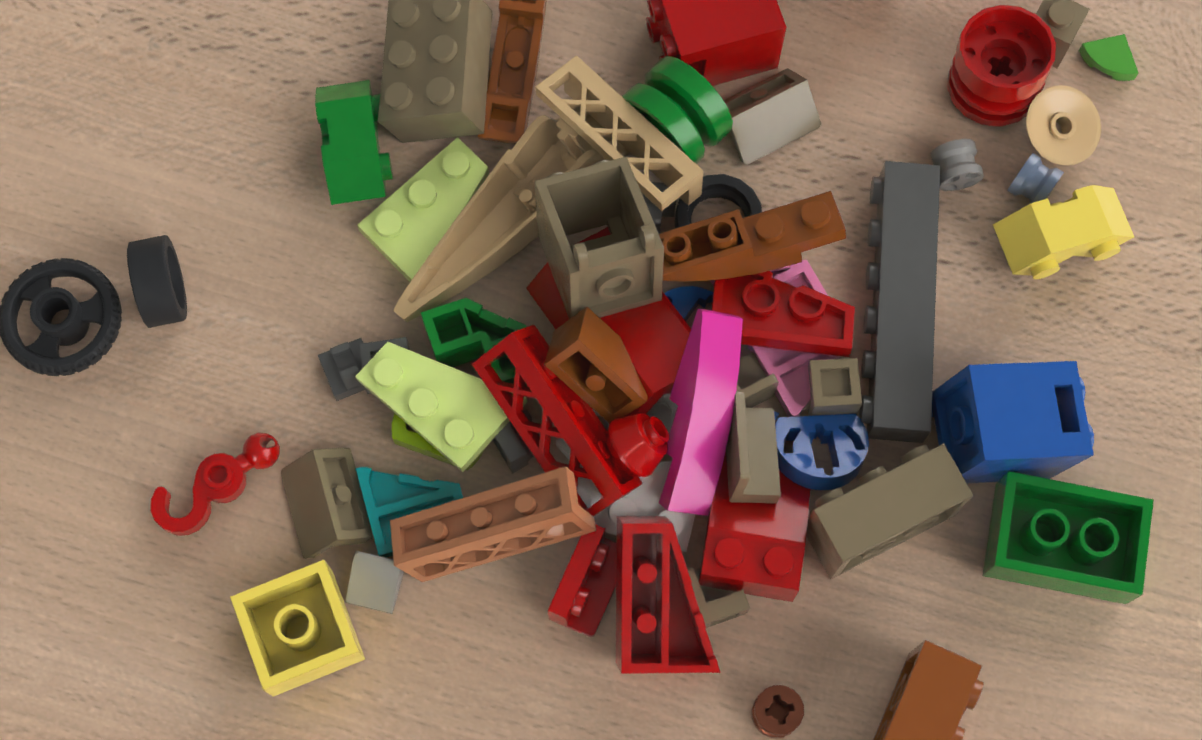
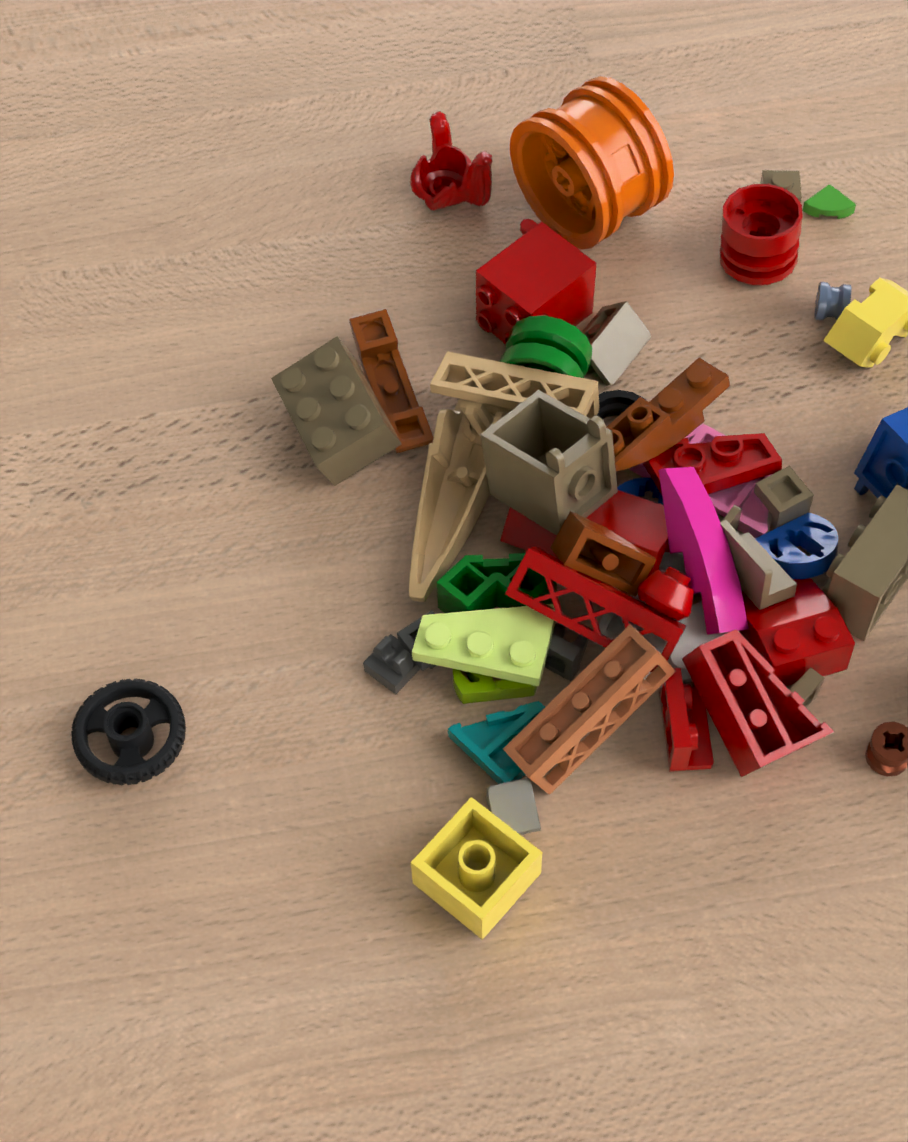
camera: 25 degrees left, 15 degrees down
(157, 281) = (201, 661): black tyre -> none
(218, 480) = (337, 794): red piece -> none
(326, 501) = (434, 769): dark tan panel -> none
(350, 142) = (301, 494): green brick -> none
(424, 208) = (384, 524): yellowish green wing -> none
(903, 302) = (793, 420): dark grey brick -> none
(957, 164) = (769, 315): light grey wheel -> none
(1077, 120) = (828, 256): tan piece -> none

